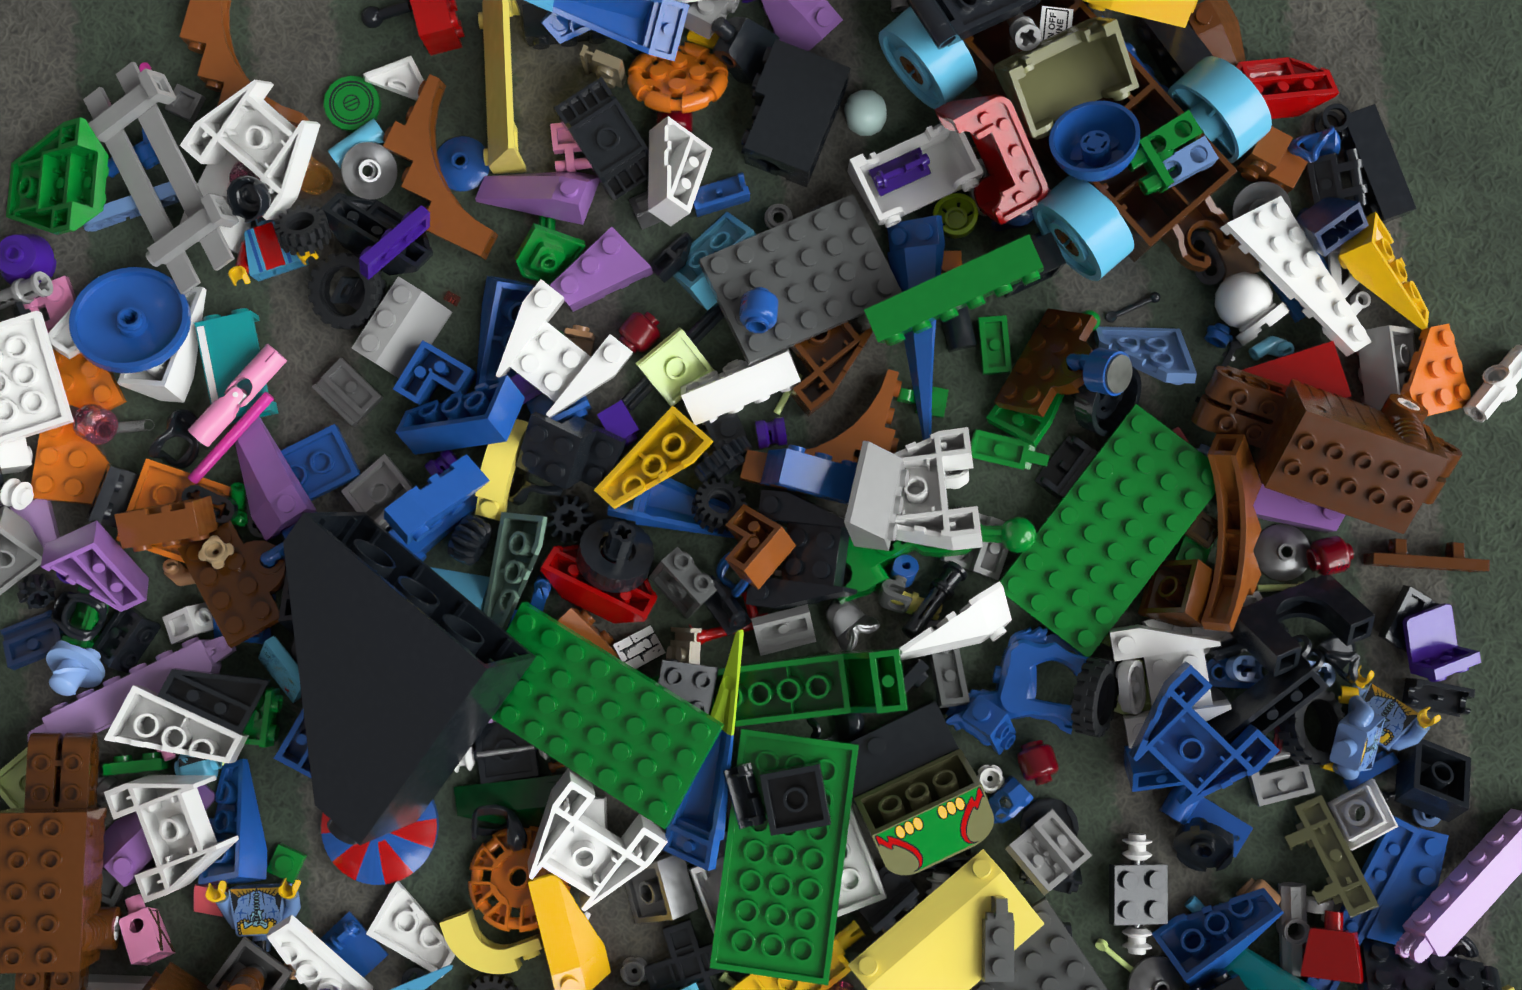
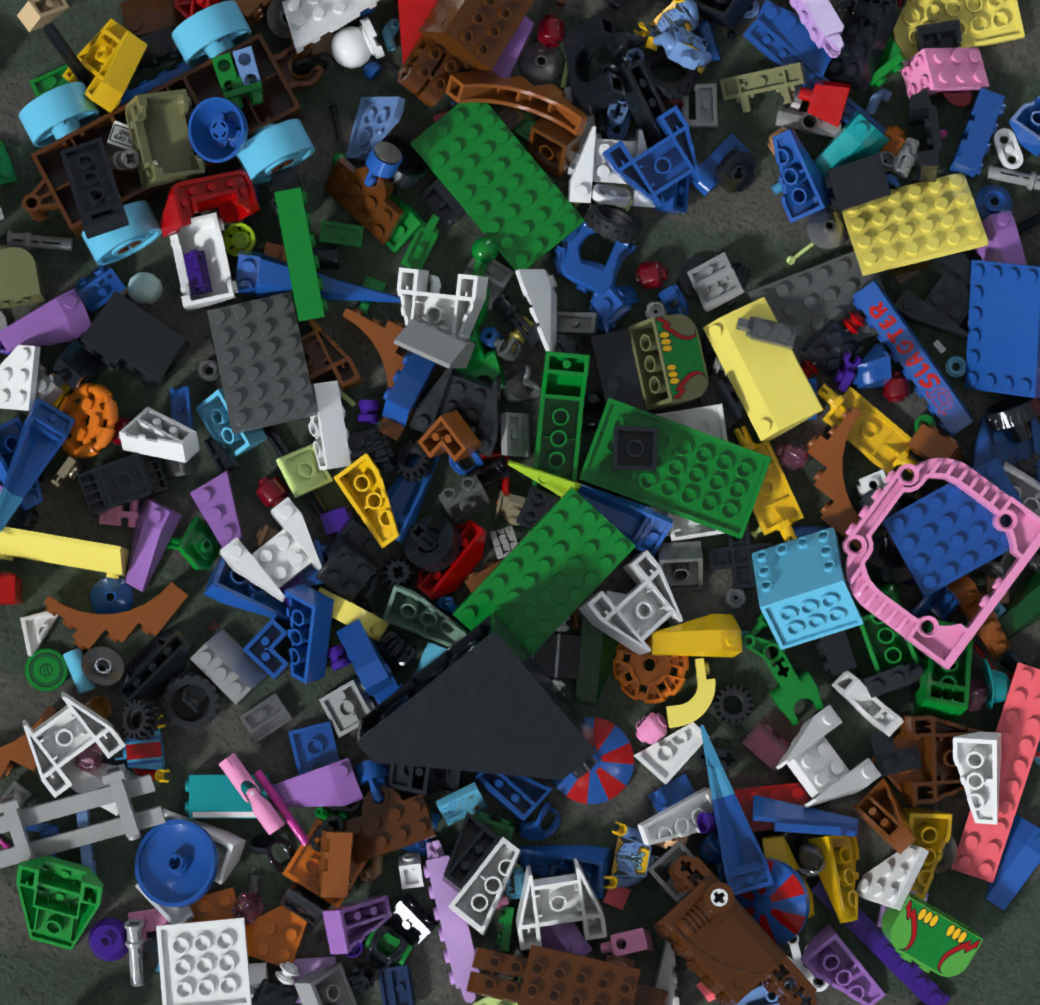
camera: 75 degrees left, 0 degrees up
(73, 668) = (424, 958): light blue plate -> none
(208, 548) = (358, 832): tan plate -> none
(248, 198) = (109, 751): black hair -> none
(269, 768) = (533, 830): none -> blue piece
(286, 862) = (602, 834): green plate -> none
(394, 242) = (165, 652): dark purple plate -> none
(436, 898) = (651, 728): none -> bright pink head
(515, 831) = (615, 659): black piece -> none
(745, 796) = (626, 485): black hinge -> none
(758, 310) = (281, 396): blue head -> none
(850, 50) = (98, 287): none -> blue bracket
(1138, 894) = (759, 225): plate -> none
(1377, 816) = (744, 48): white piece -> none

